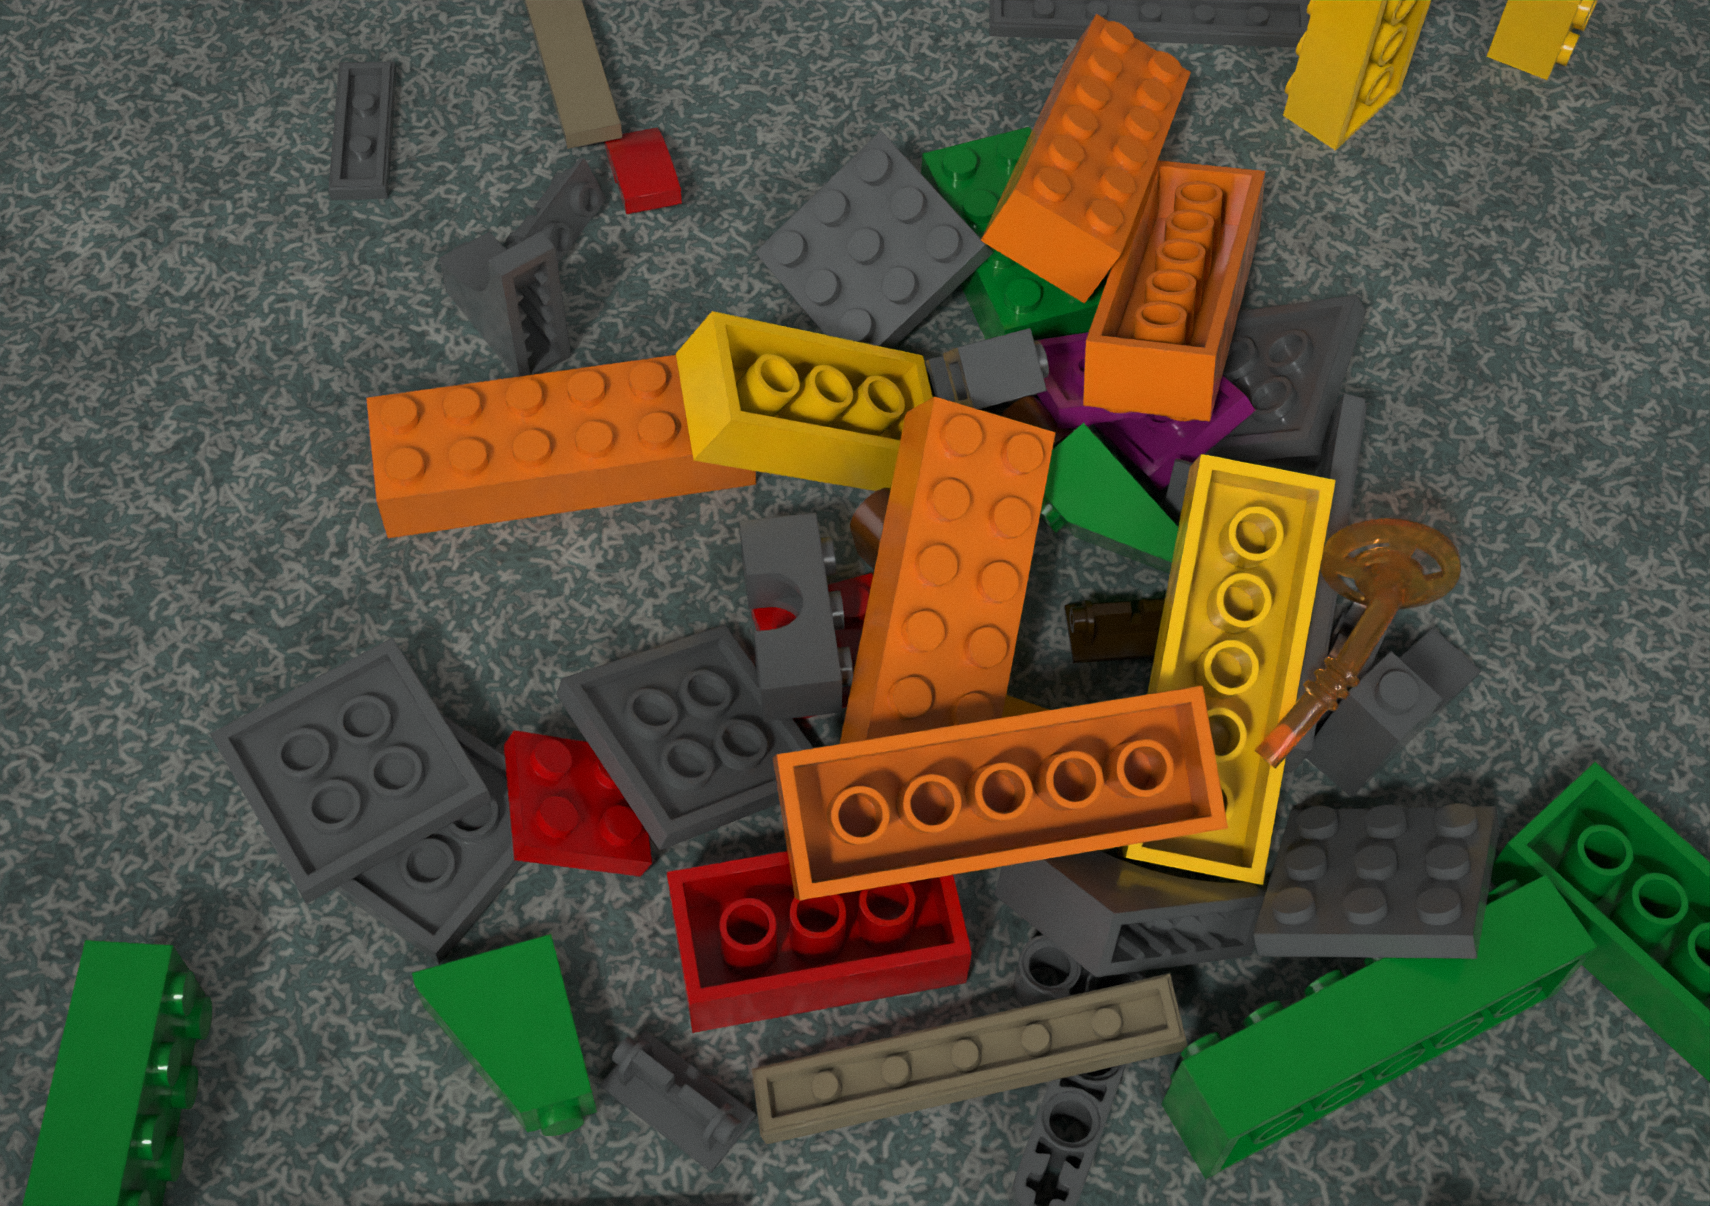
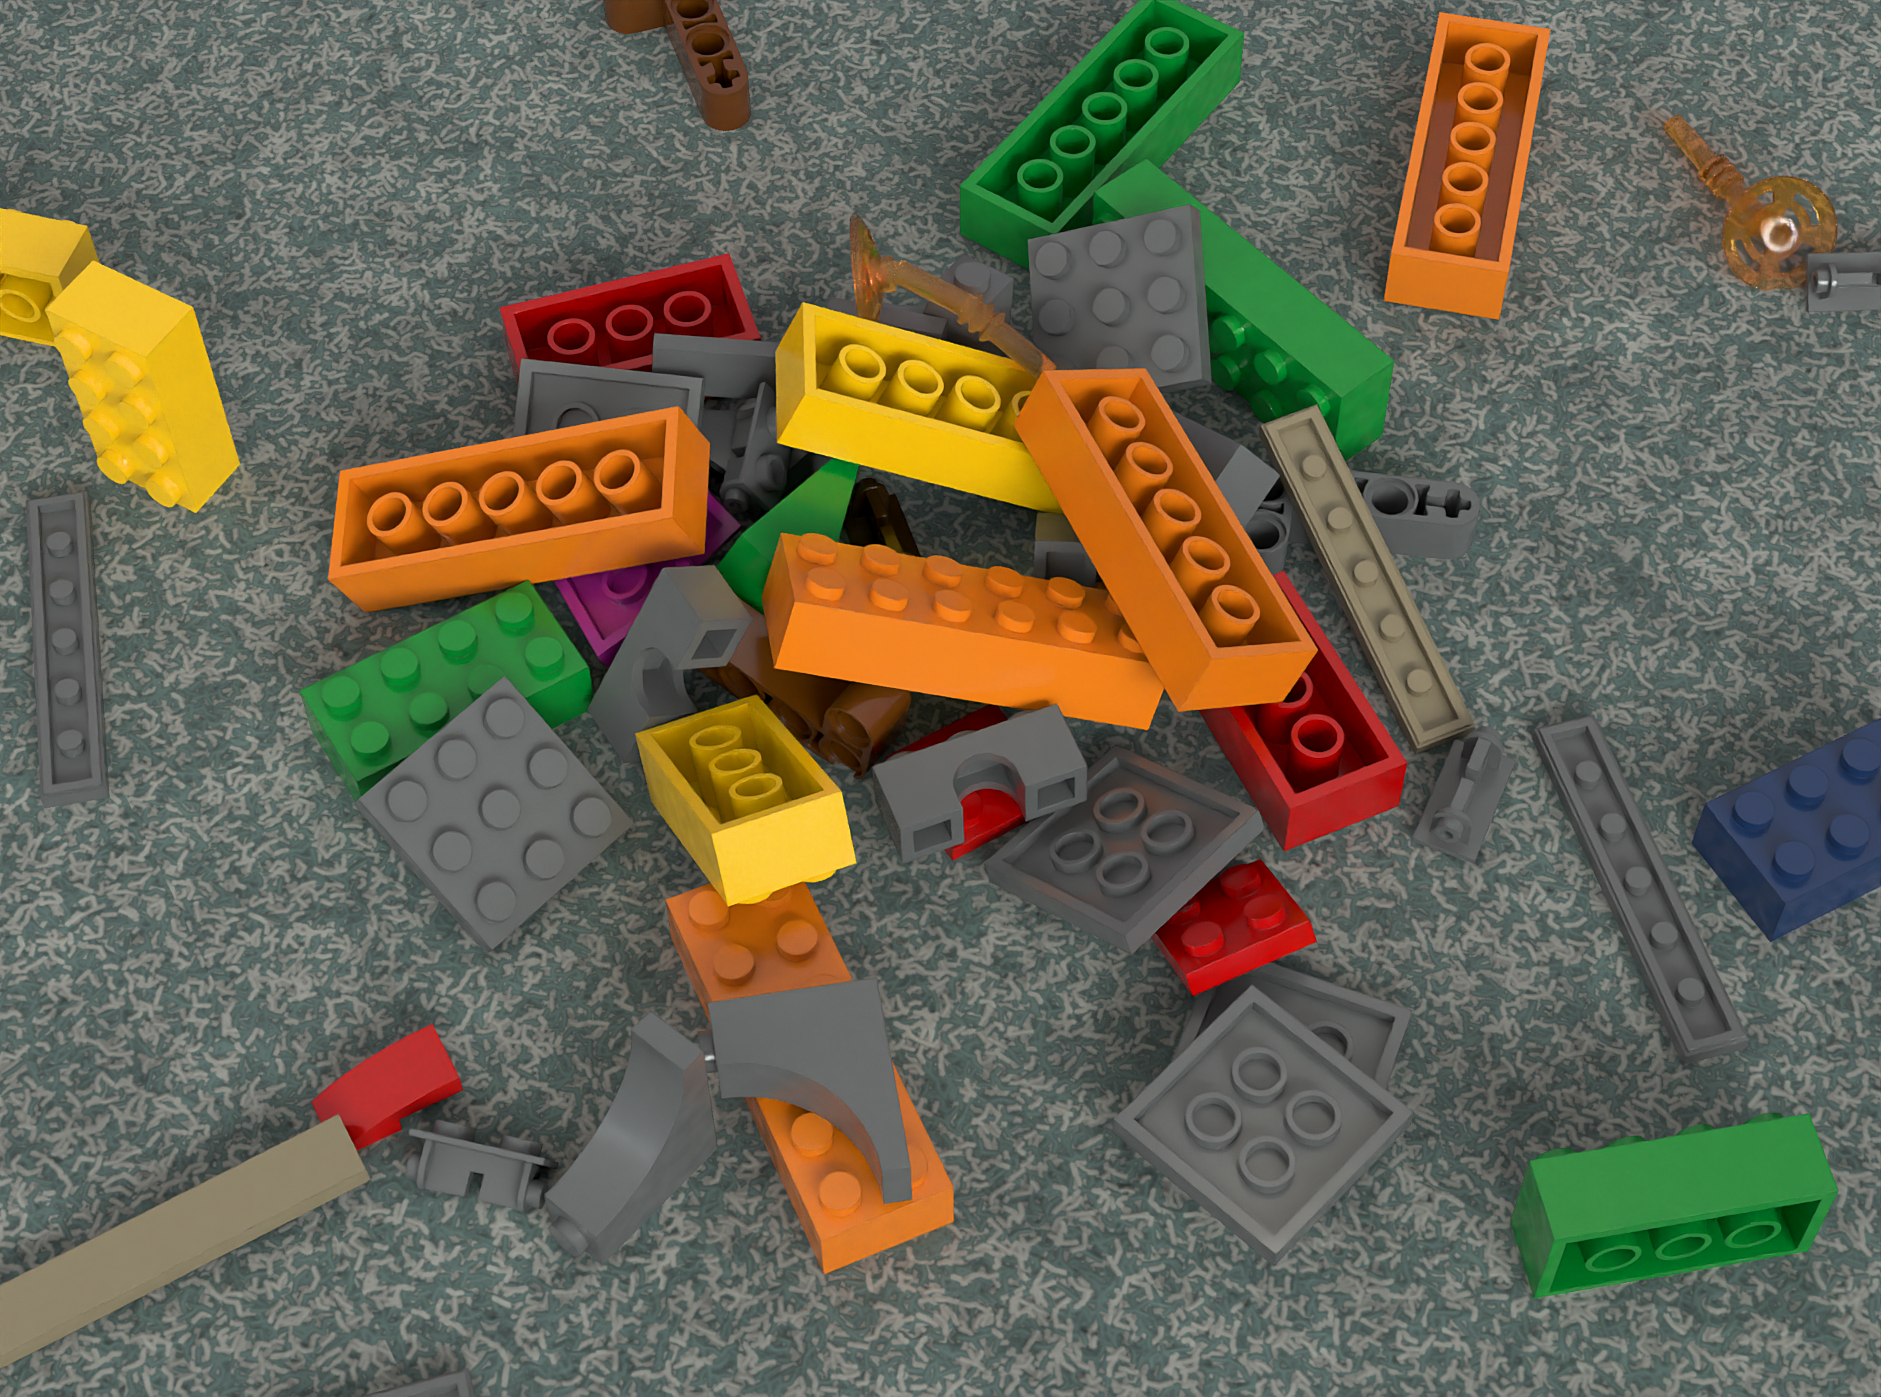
camera: 100 degrees left, 5 degrees down
(498, 413) = (821, 1053): none -> dark grey arch
(515, 1030) = (1455, 926): green slope -> none
(1088, 159) = (353, 610): orange brick -> none
(1425, 436) = (617, 319): none -> red brick

